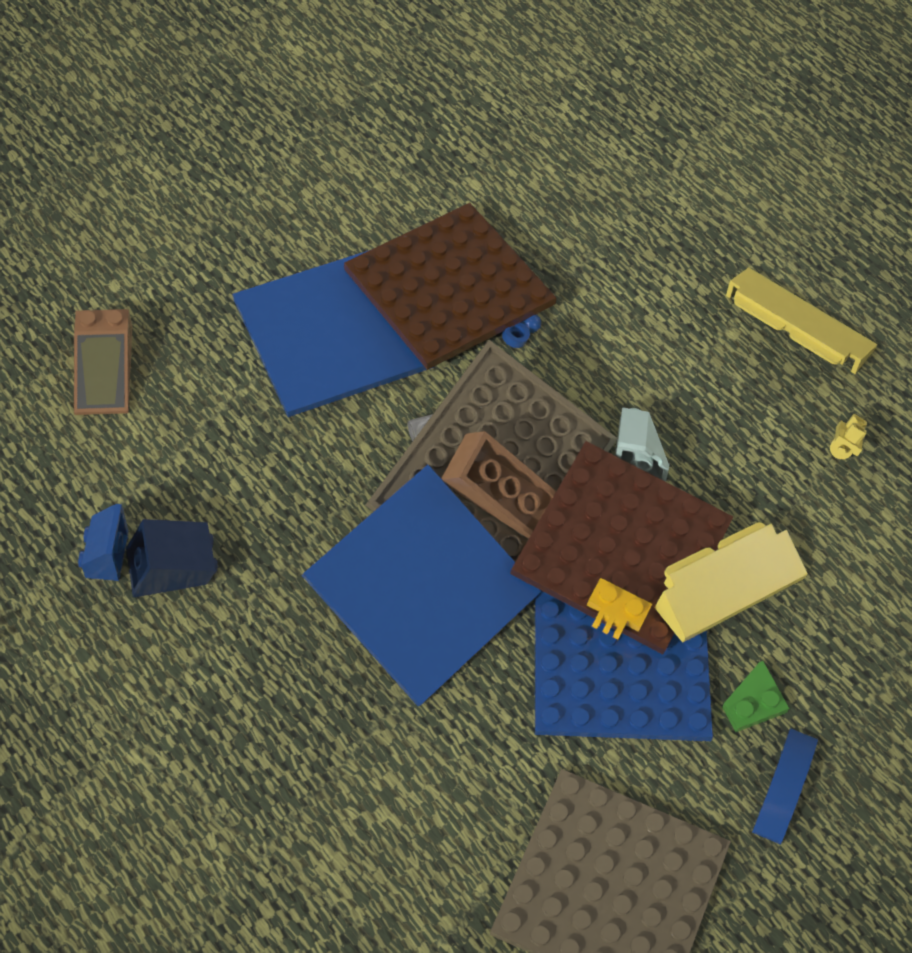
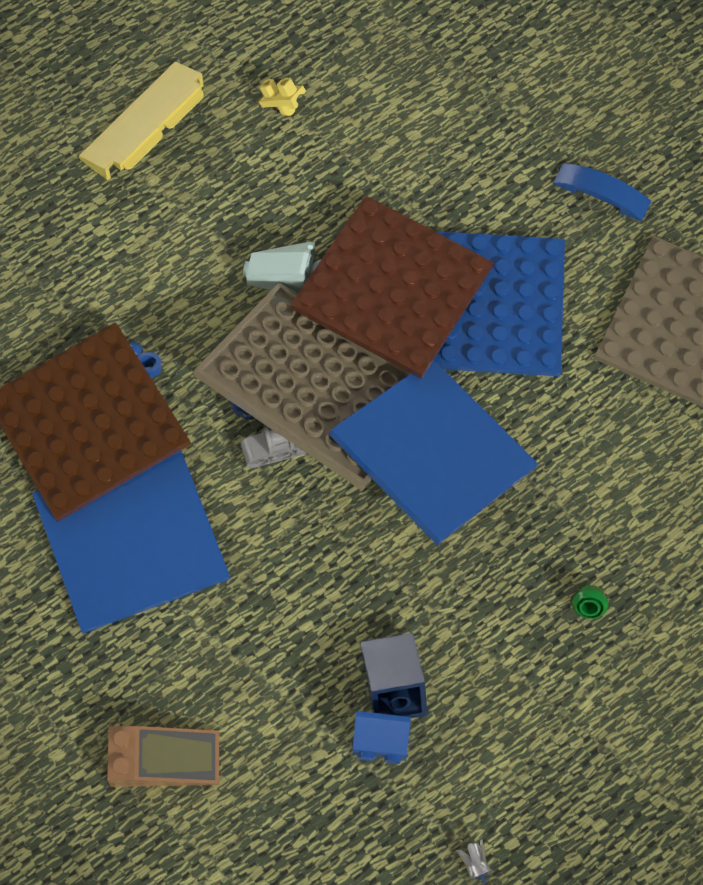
camera: 85 degrees left, 10 degrees up
(251, 756) = (590, 602): none -> green cone
(498, 482) = (340, 378): medium nougat slope -> none
(617, 608) = (463, 292): yellow hinge -> none
(727, 581) = (429, 205): light yellow slope -> none
(755, 700) = (528, 204): bright green wing -> none

